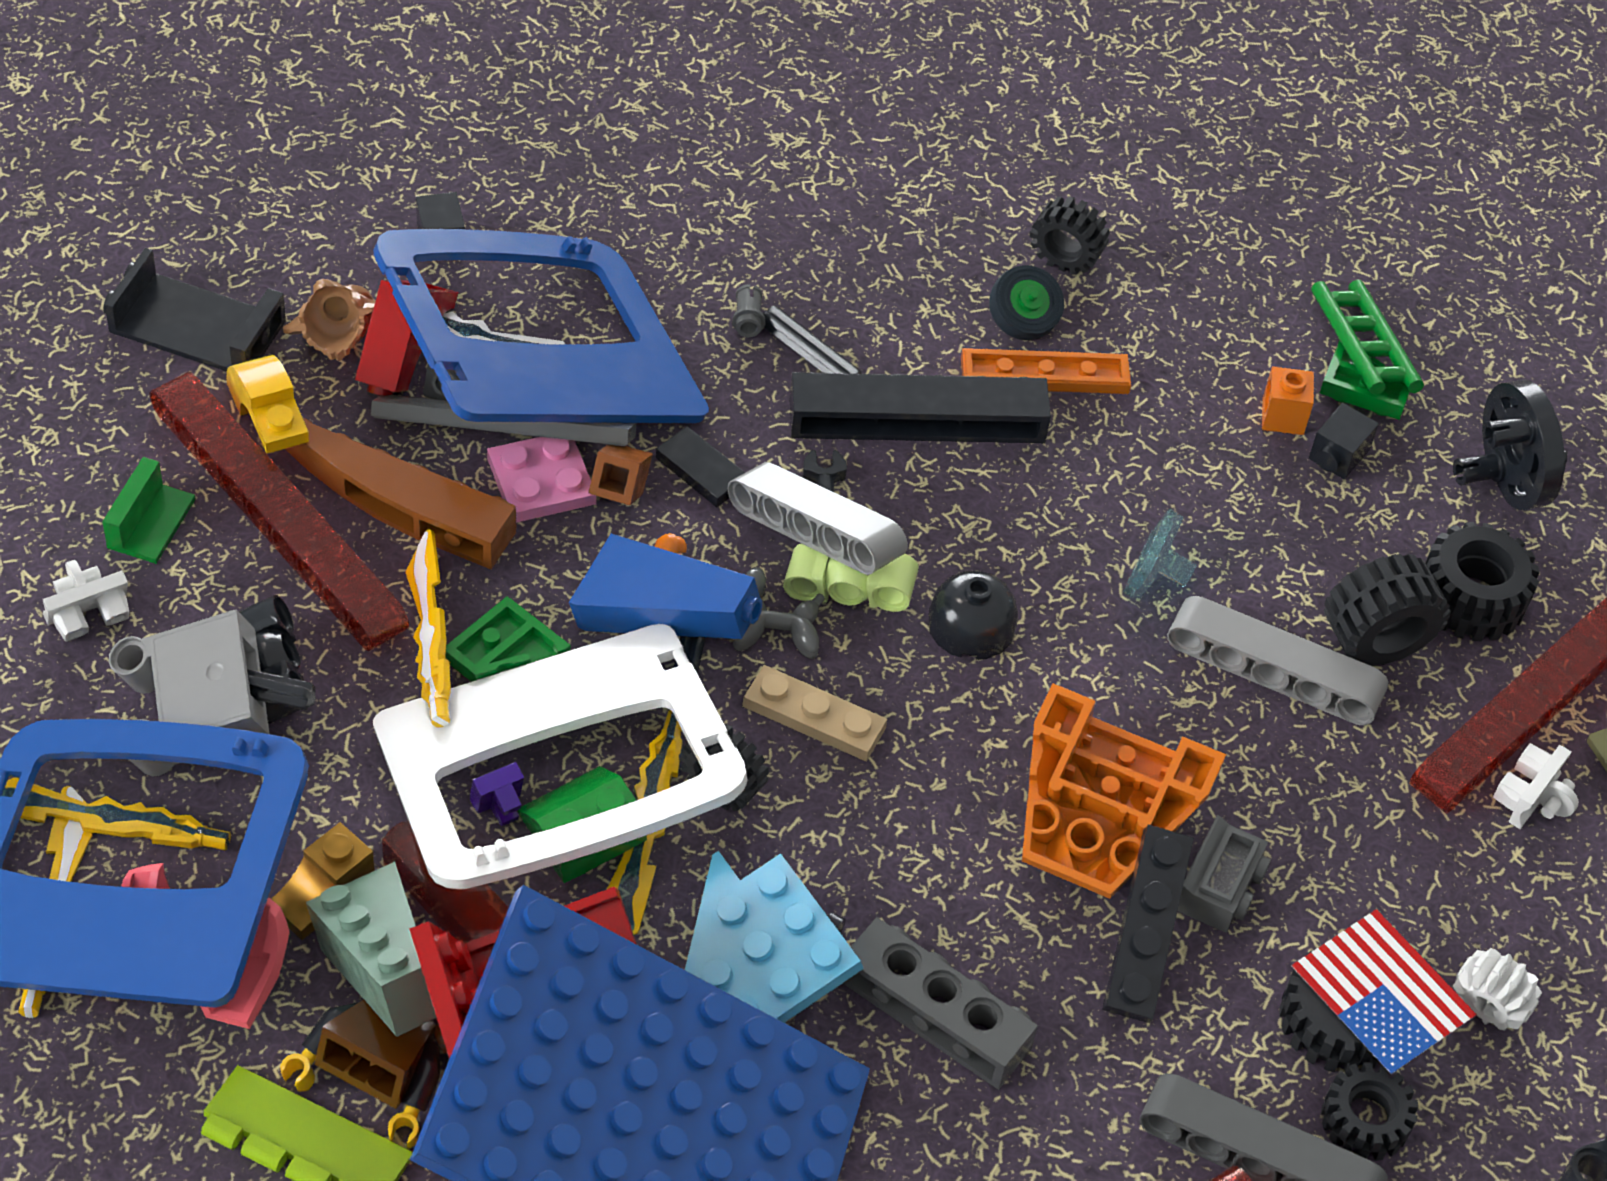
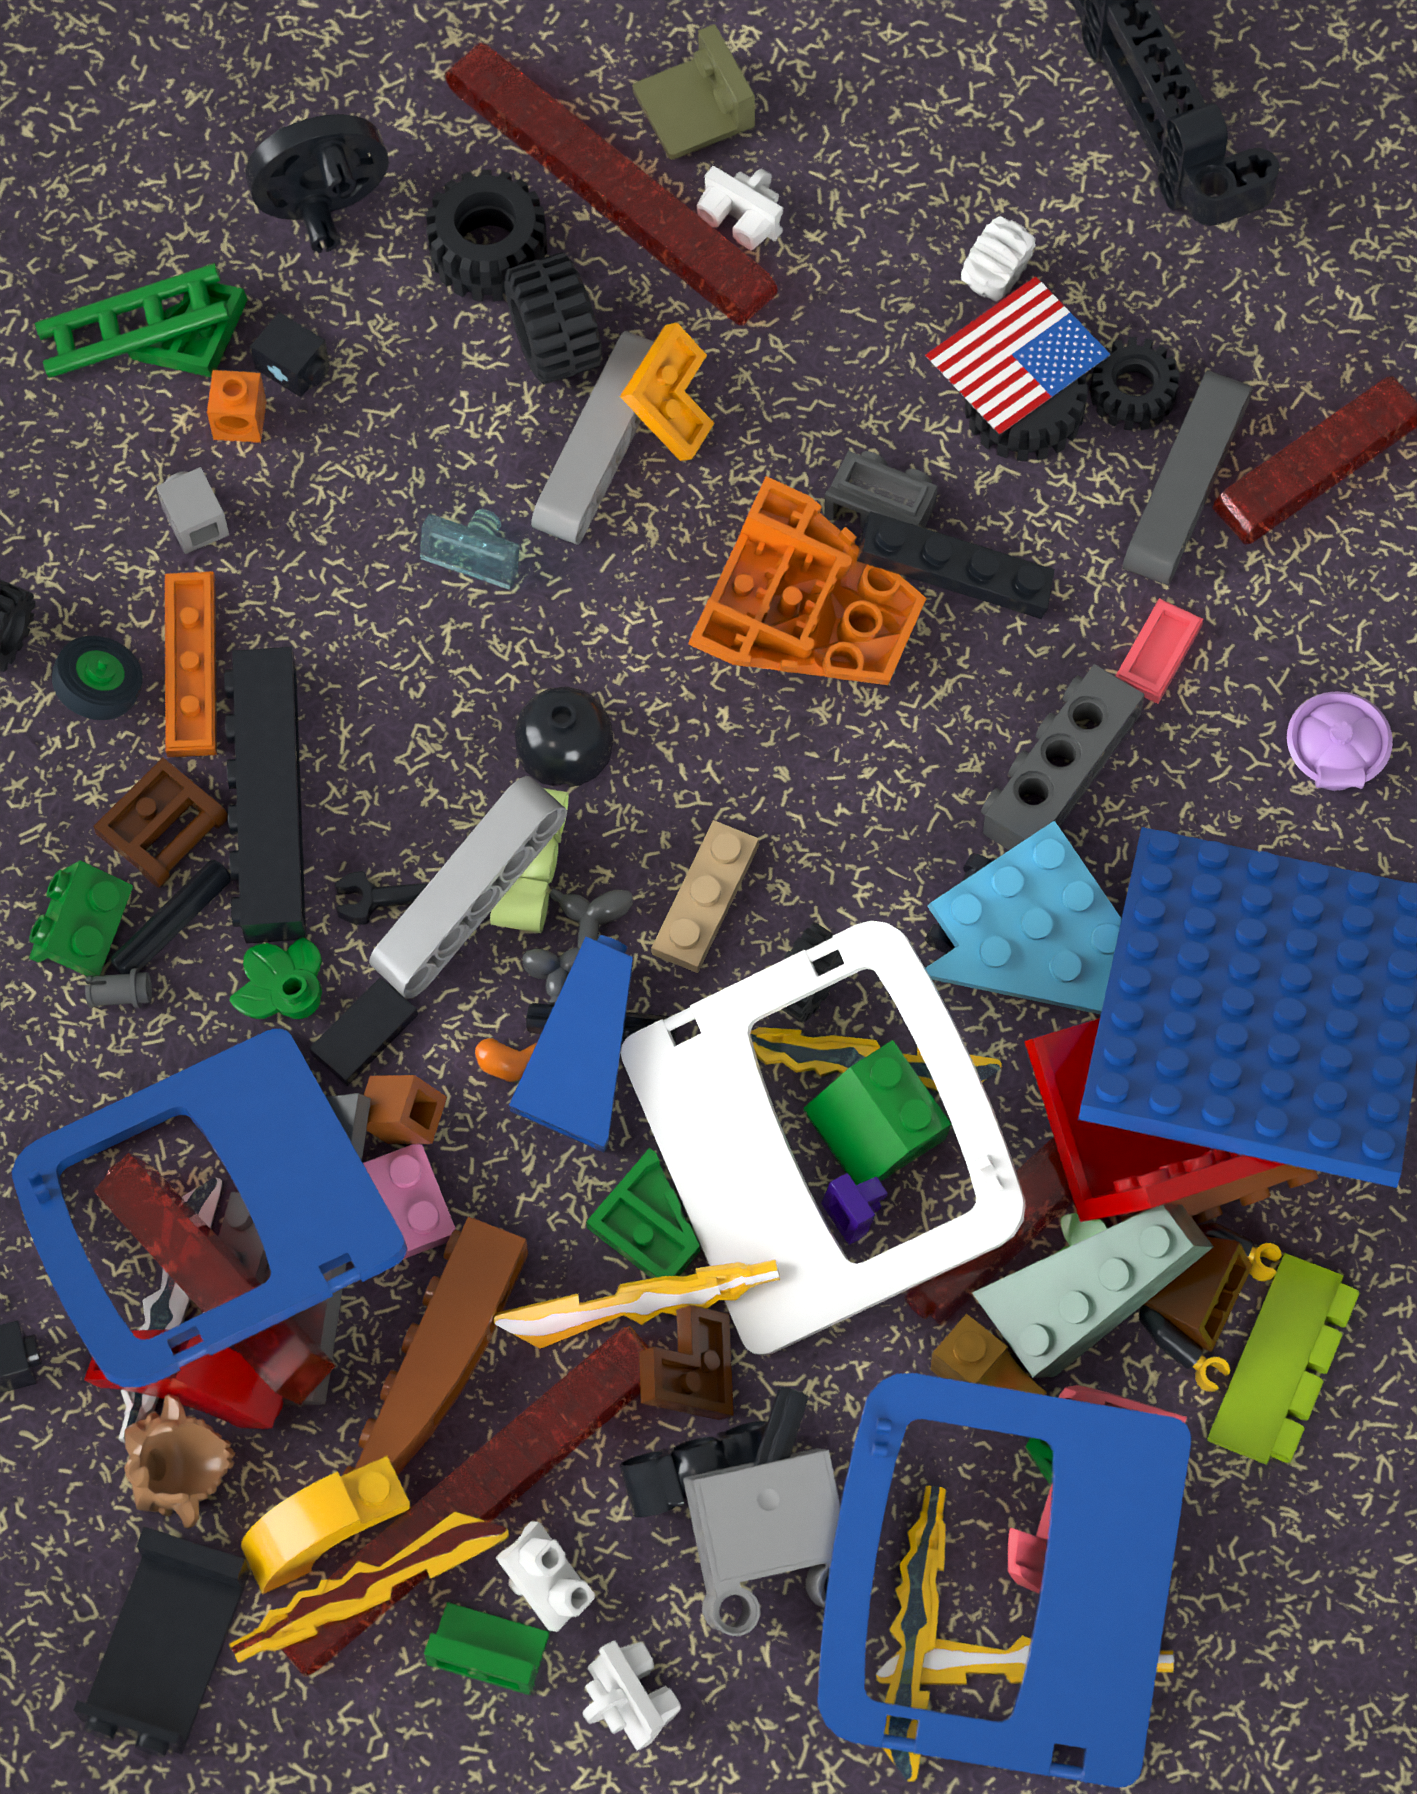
camera: 85 degrees left, 15 degrees up
(195, 544) = (545, 1577): none -> white hips
(227, 470) = (366, 1585): none -> yellow sword
(351, 666) = (699, 1374): none -> reddish brown plate
(531, 315) = (209, 1273): none -> clear red brick
(750, 412) = (275, 976): none -> green plate
(811, 289) = (80, 918): none -> green bracket
(902, 332) = (149, 811): none -> reddish brown plate
(1067, 1109) = (1159, 649): none -> coral tile
(1186, 370) = (192, 509): none -> light grey brick
(1316, 689) = (659, 392): none -> light orange plate

